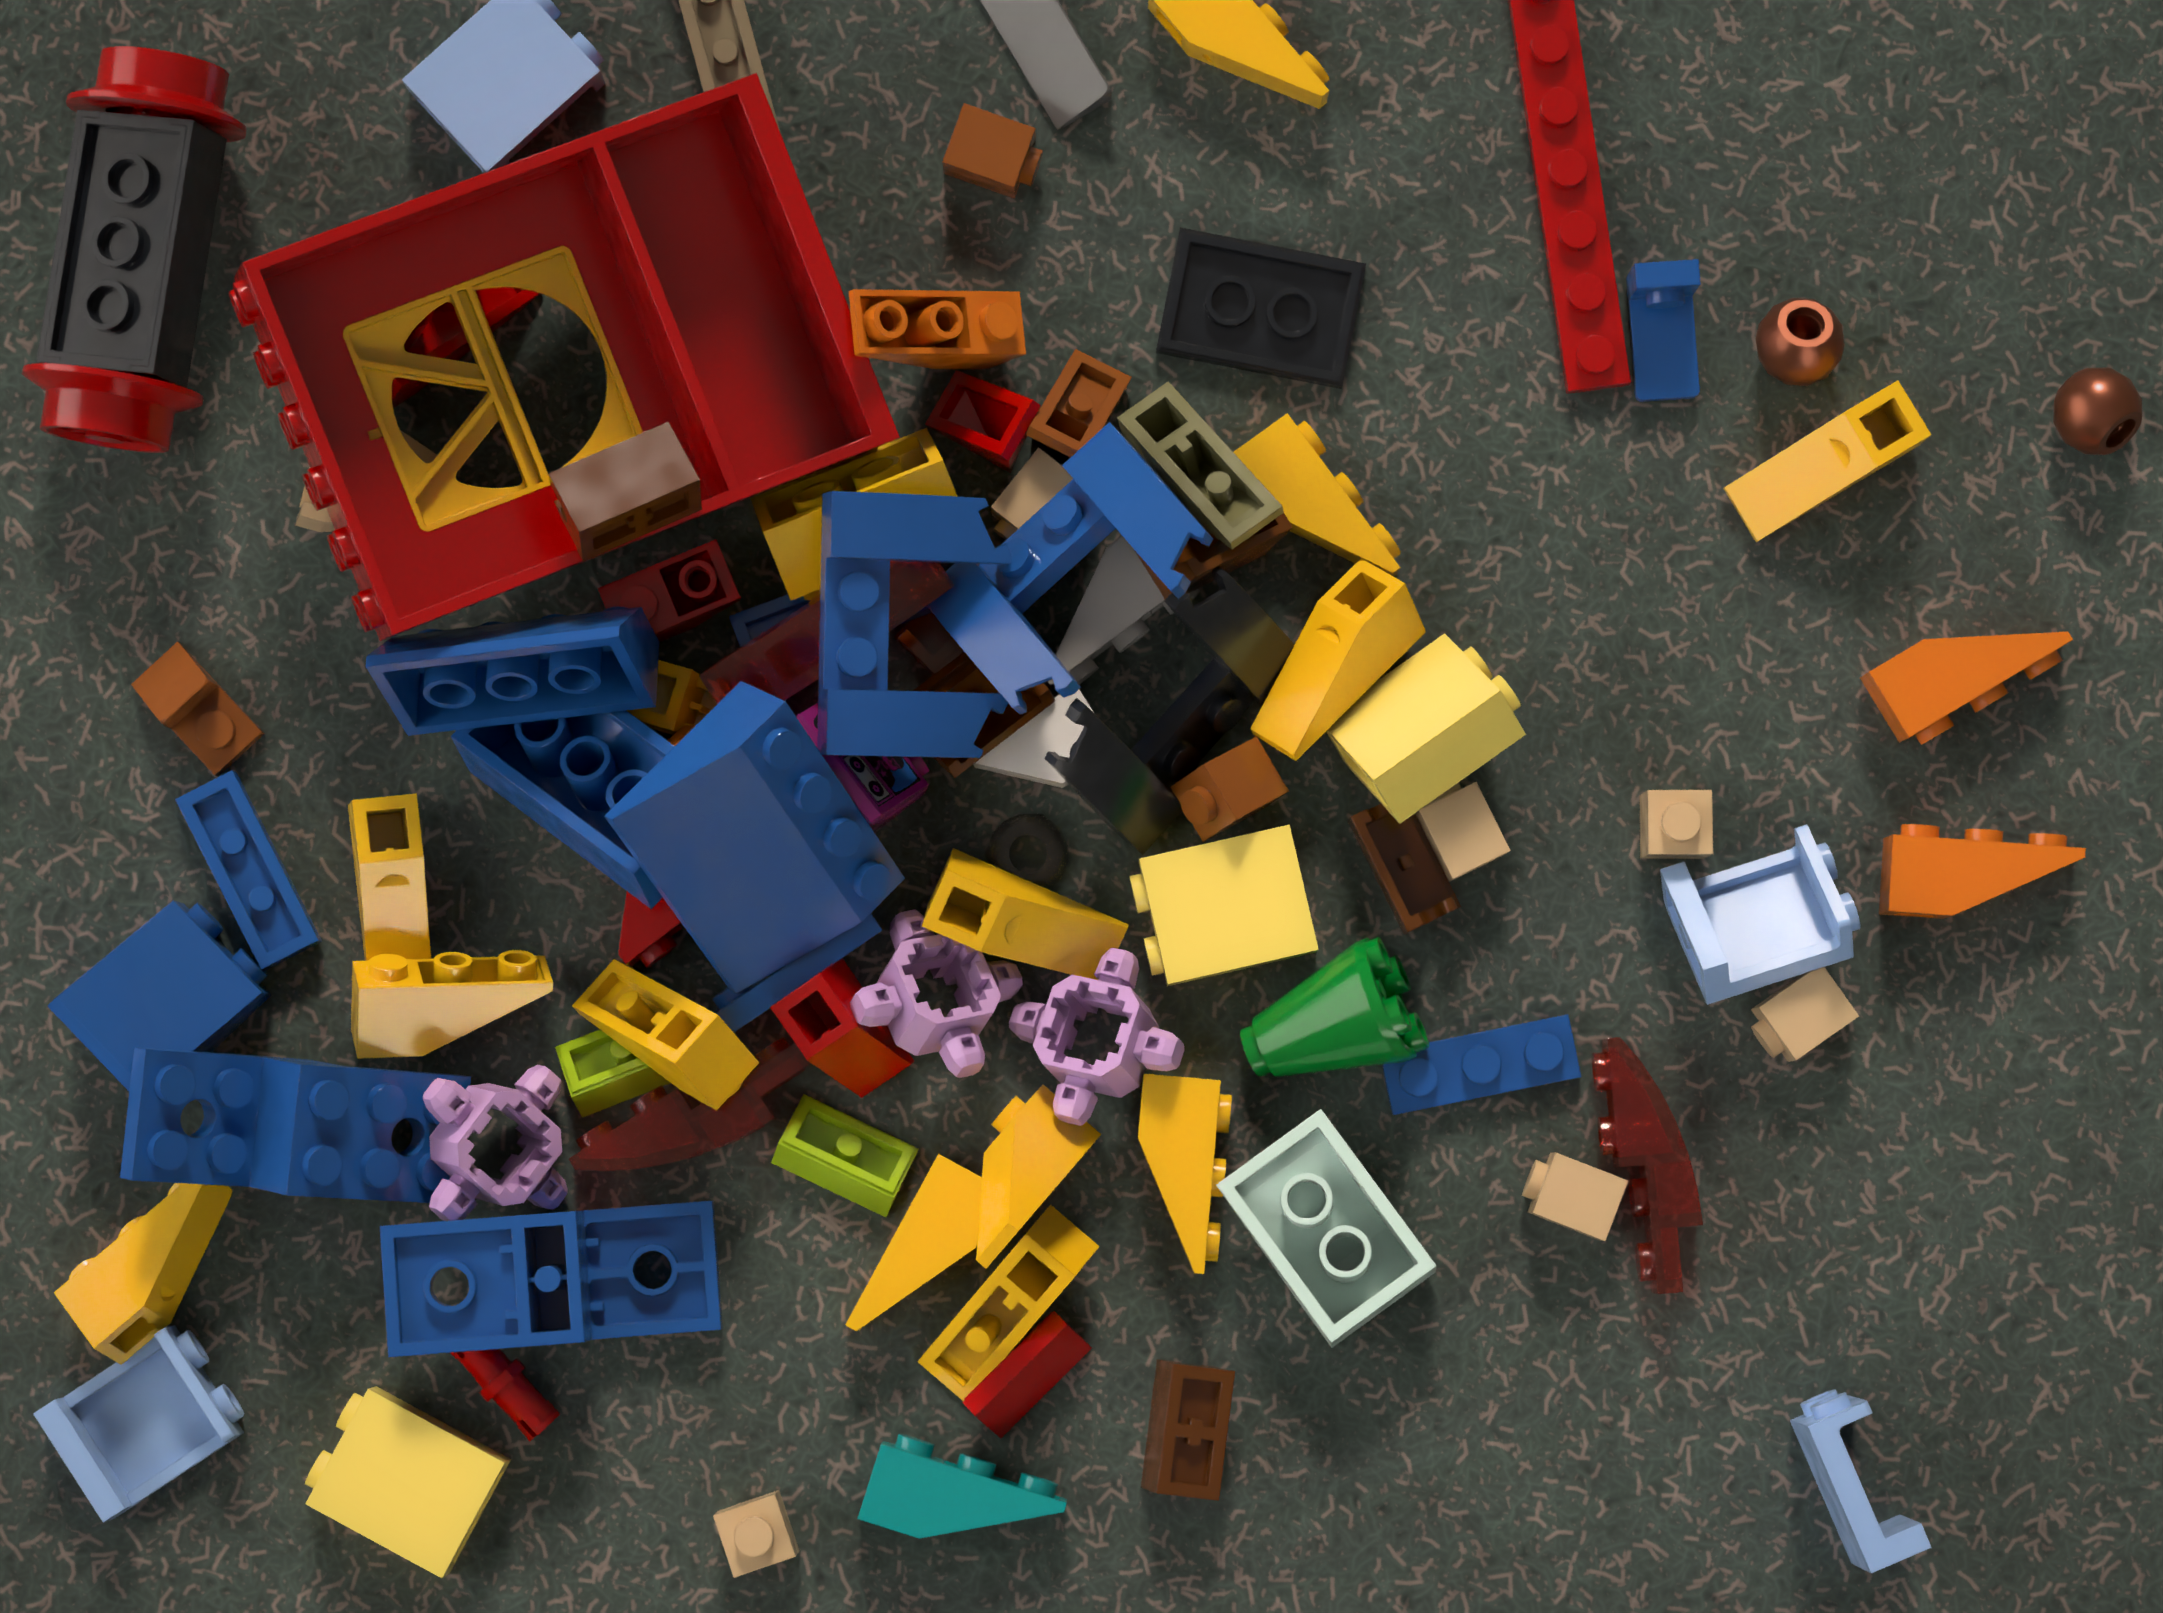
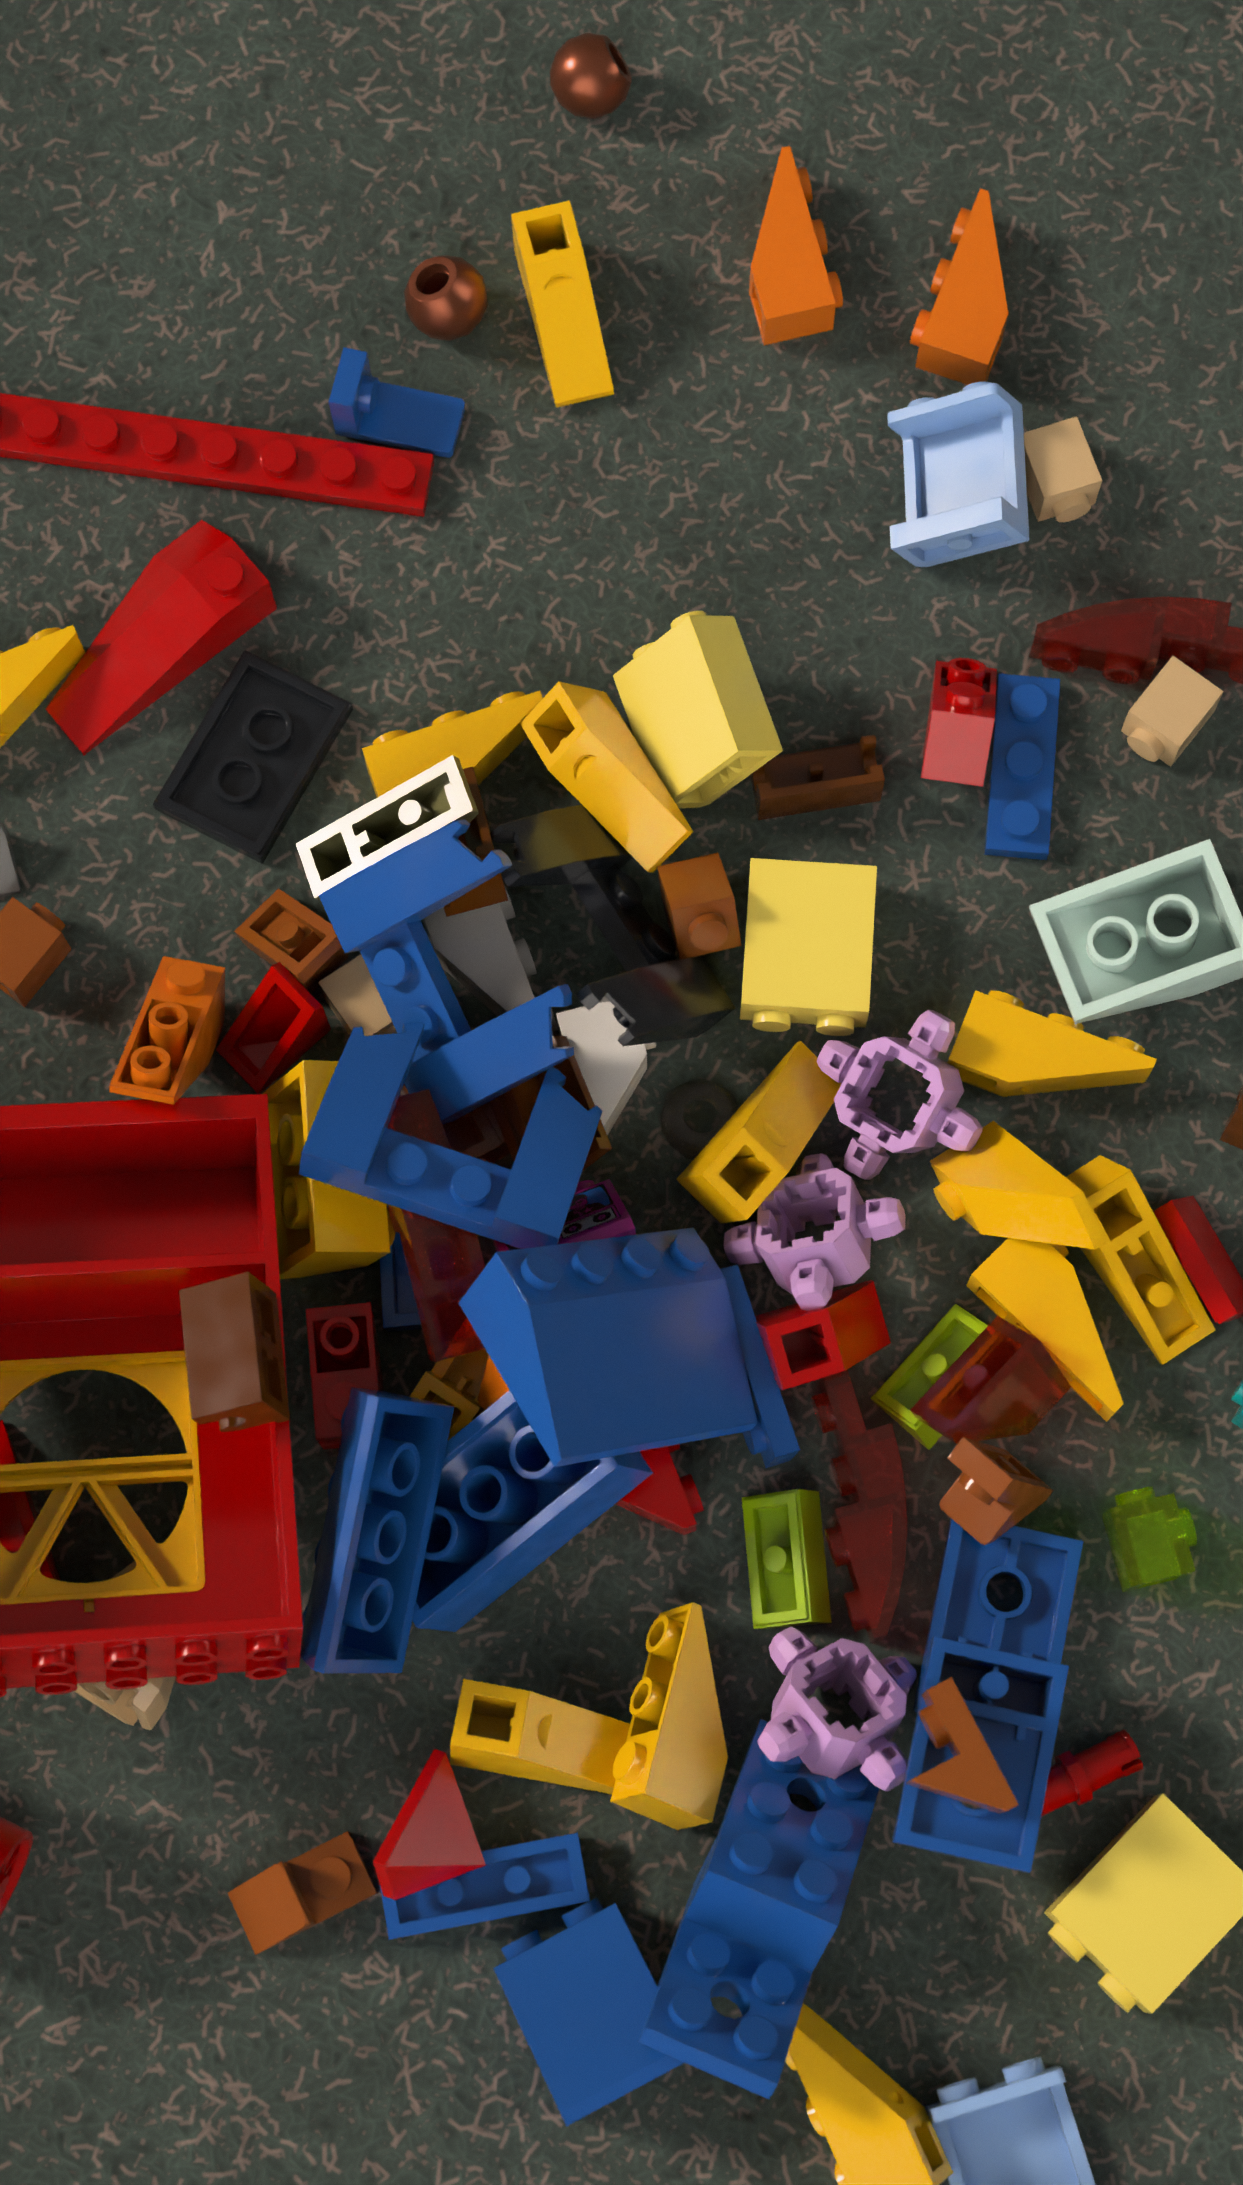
camera: 70 degrees left, 10 degrees down
(274, 807) = (430, 1835): none -> red slope
(453, 1275) = (973, 1771): none -> dark orange slope
(668, 1033) = (777, 1500): yellow slope -> none
(742, 1231) = (991, 1491): none -> dark orange slope
(742, 1391) = (1149, 1538): none -> clear neon green brick
(833, 1203) = (994, 1387): none -> clear red slope
(1338, 1018) = (946, 870): green cone -> none
(1371, 179) = (170, 623): none -> red wedge
(1462, 830) = (806, 711): tan brick -> none
(1503, 989) = (960, 722): none -> slope
(1676, 824) = (852, 526): tan brick -> none

